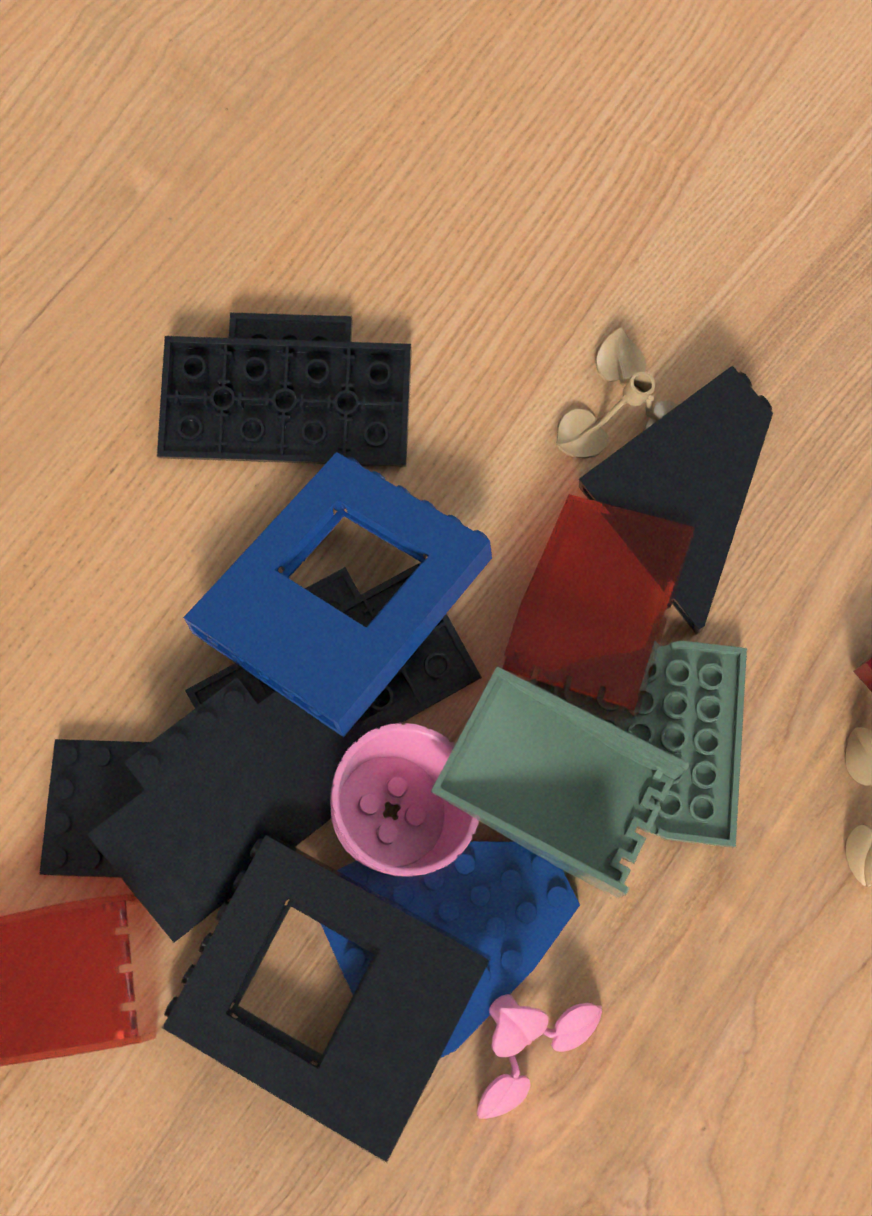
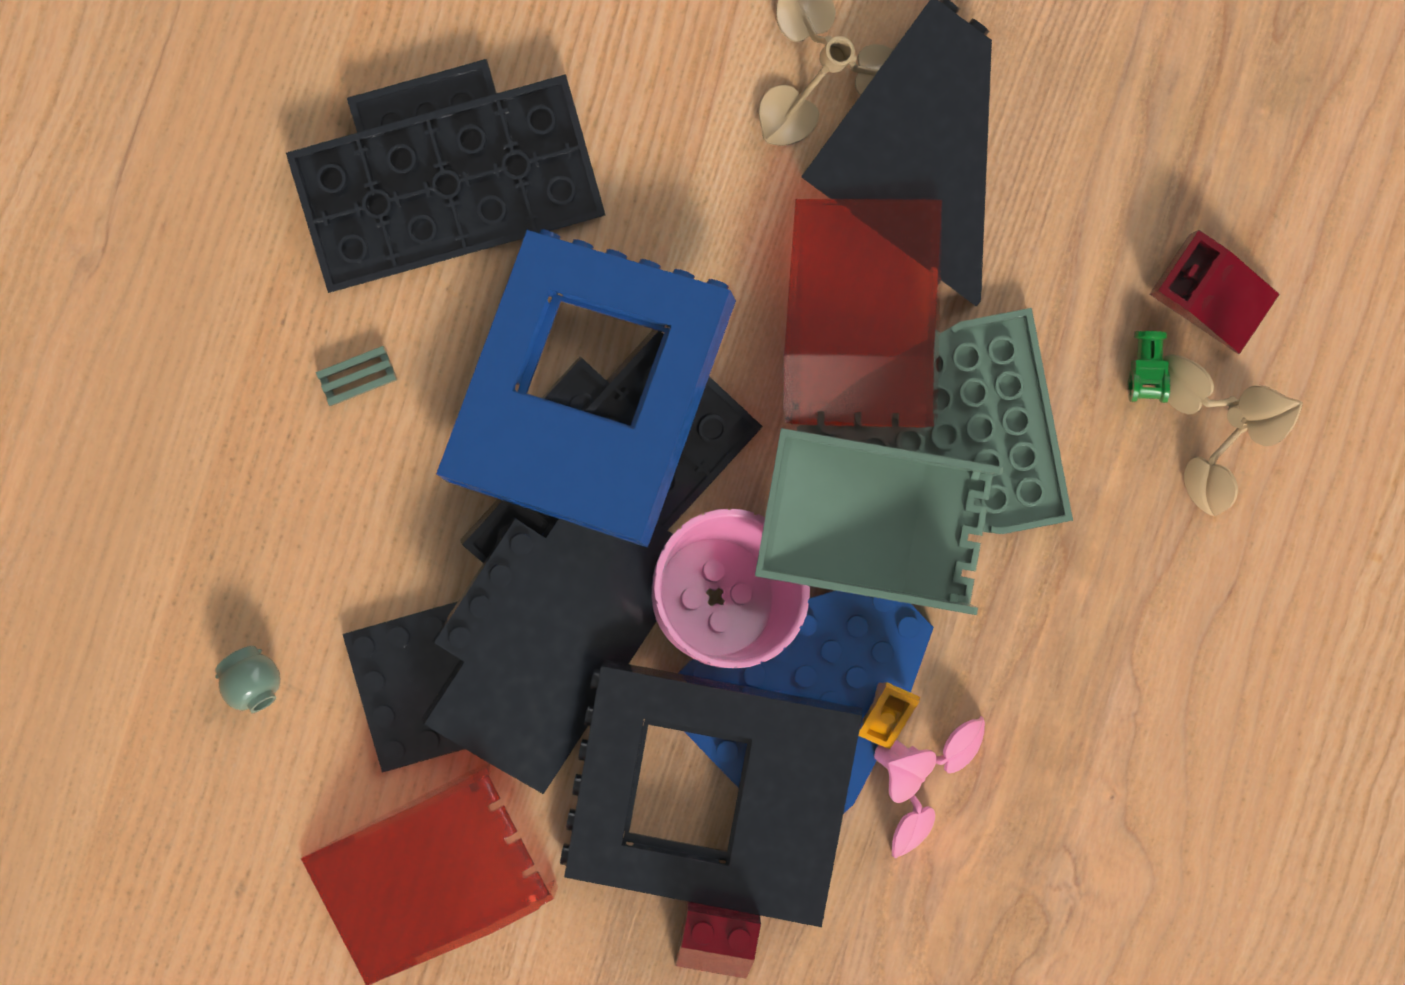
camera: 20 degrees left, 15 degrees up
(160, 517) = (328, 387): none -> sand green tile
(282, 1141) = (718, 940): none -> dark red slope
(514, 970) = (888, 714): none -> light orange slope
(837, 735) = (1149, 368): none -> green connector

